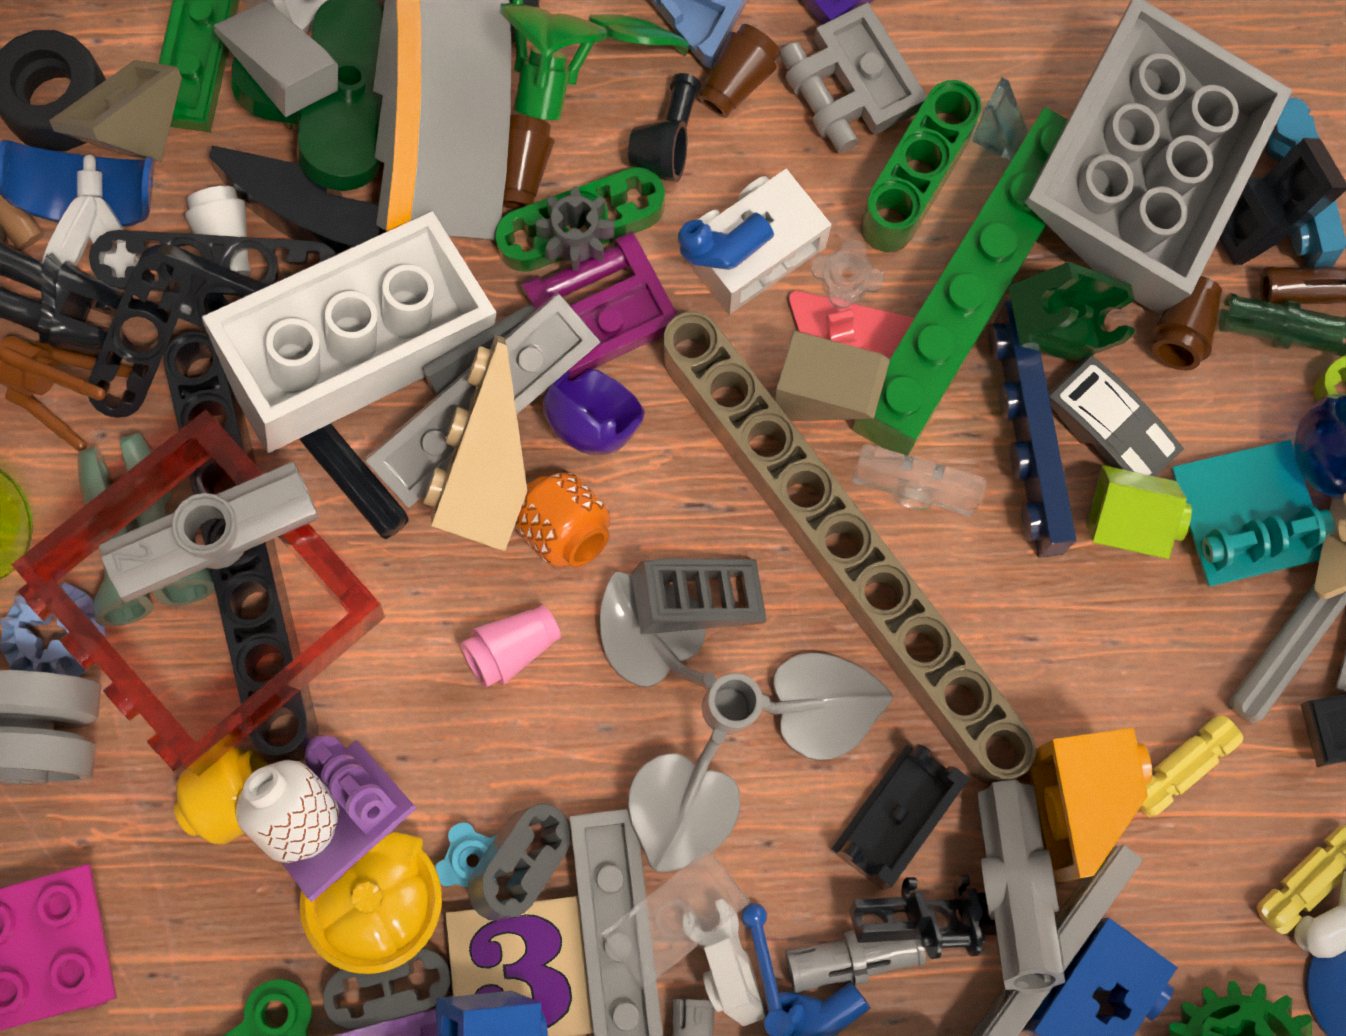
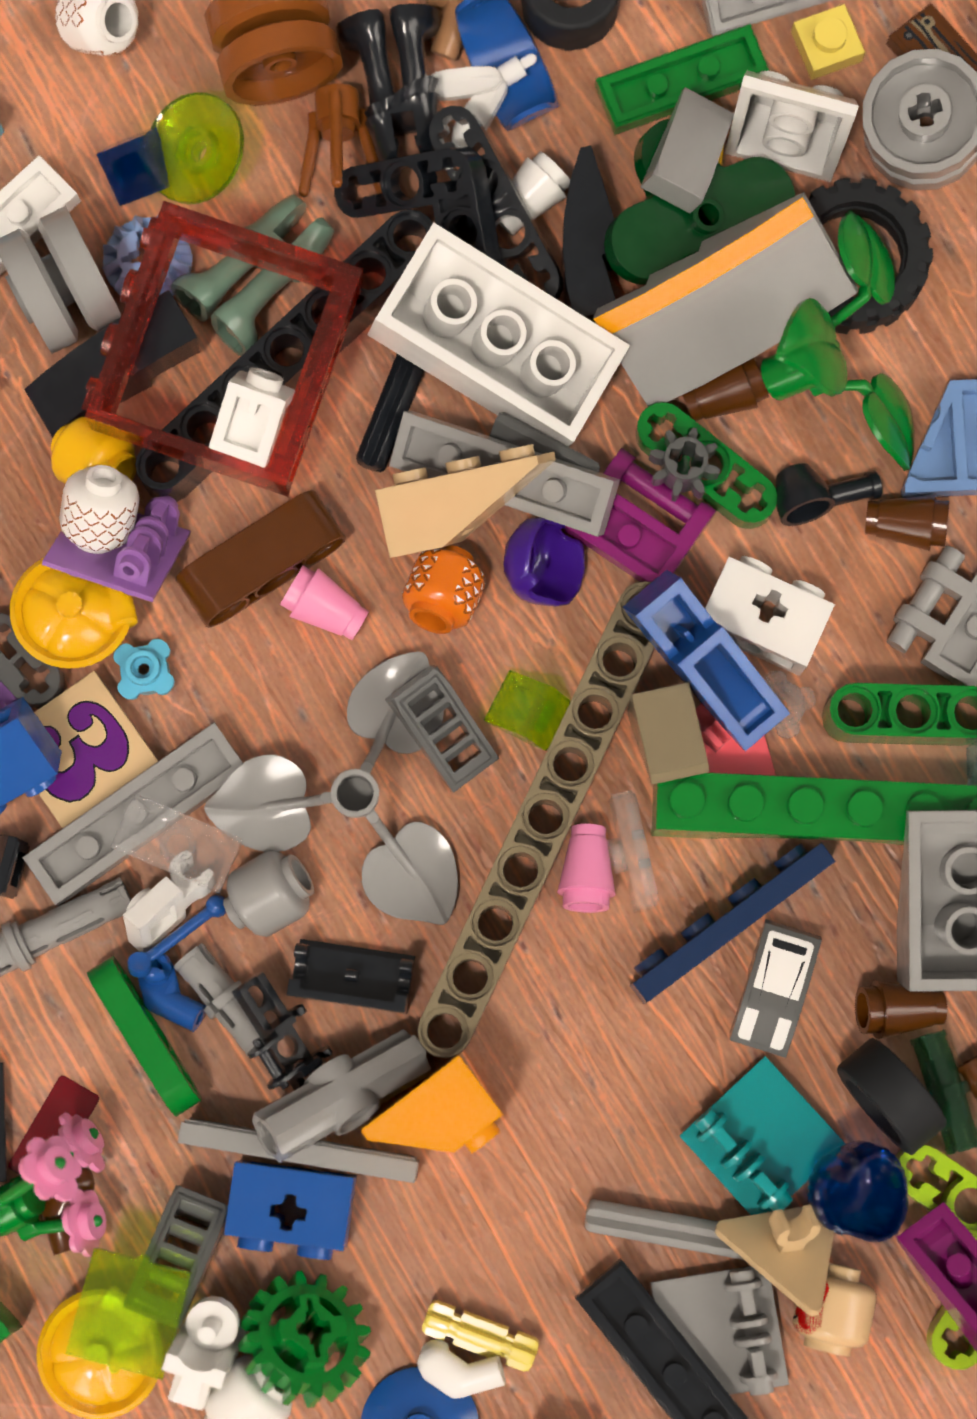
camera: 65 degrees right, 5 degrees up
(126, 111) = (583, 62): dark tan slope -> none
(136, 779) = (61, 388): none -> black slope
(168, 548) = (237, 305): light grey piece -> none
(292, 594) = (251, 416): none -> white bracket
(428, 683) = (260, 558): none -> reddish brown beam
(531, 869) = (157, 716): dark grey beam -> none
(720, 249) = (730, 590): blue arm -> none
(722, 508) = (528, 710): none -> clear neon green slope
(772, 303) = (706, 658): none -> blue slope
(772, 854) = (268, 893): none -> light grey head
(914, 534) = (587, 871): none -> bright pink cone
(1066, 311) = (839, 900): dark green hinge -> none
(1138, 512) = (704, 1044): lime brick -> none
(1190, 763) = (518, 1188): light yellow axle -> none
(1275, 367) = (892, 1096): none -> black tyre

